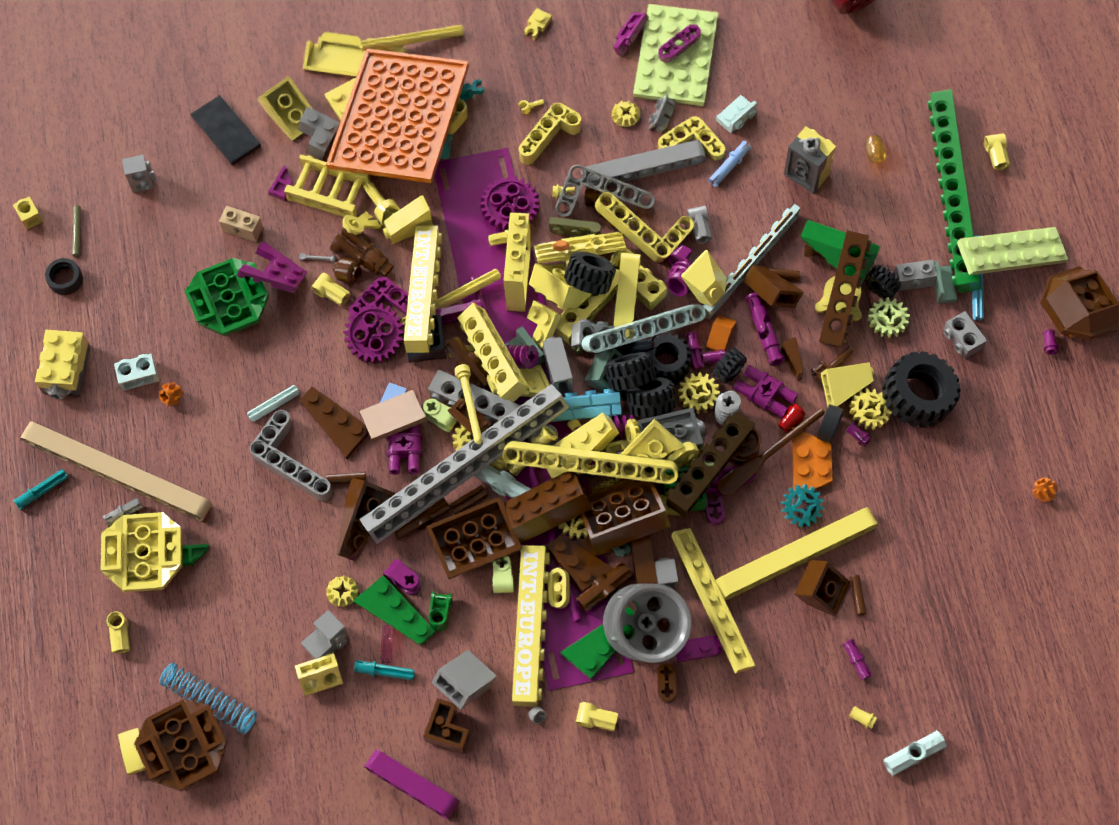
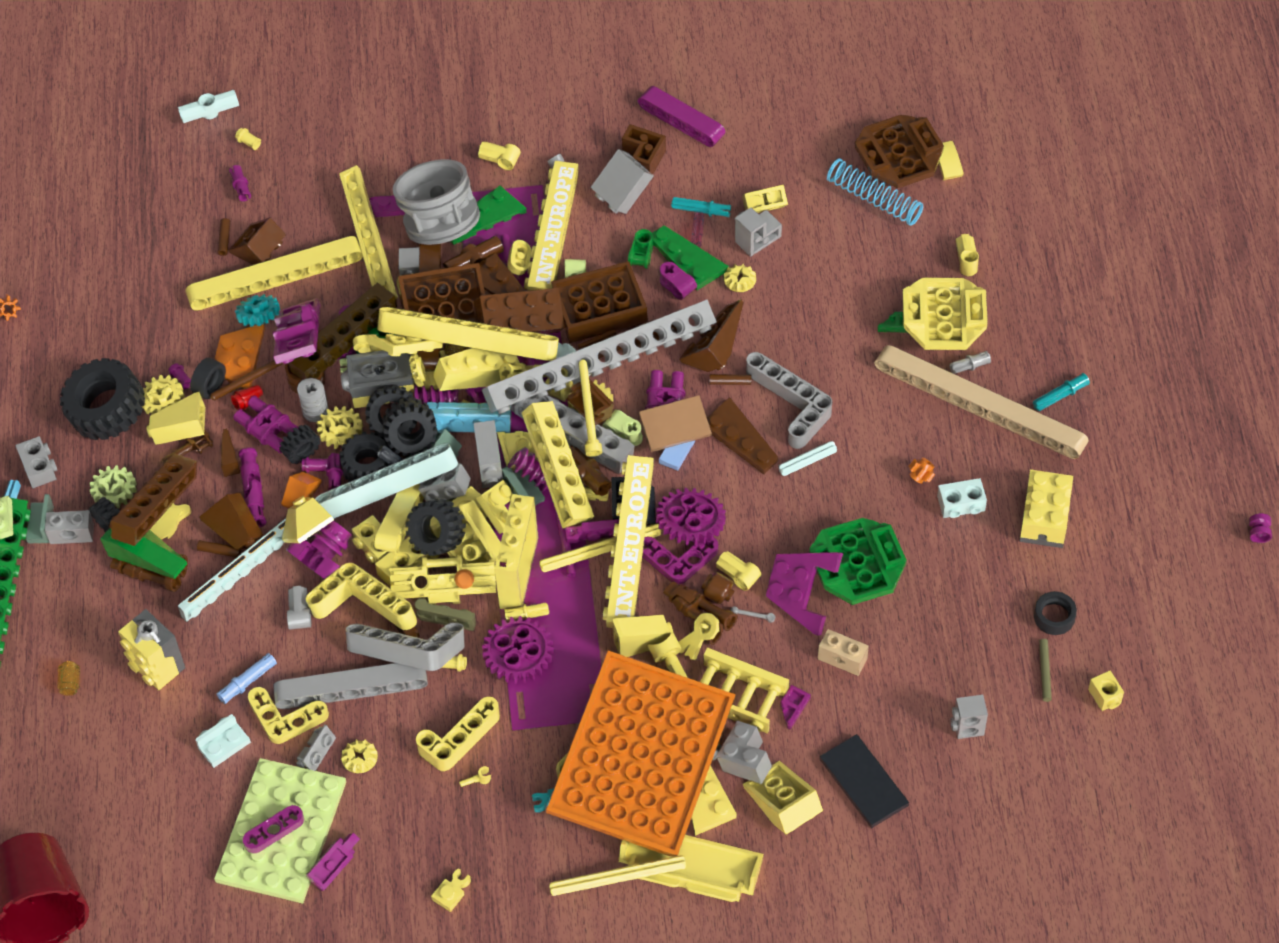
camera: 175 degrees left, 10 degrees down
(747, 432) = (296, 331): none -> magenta plate

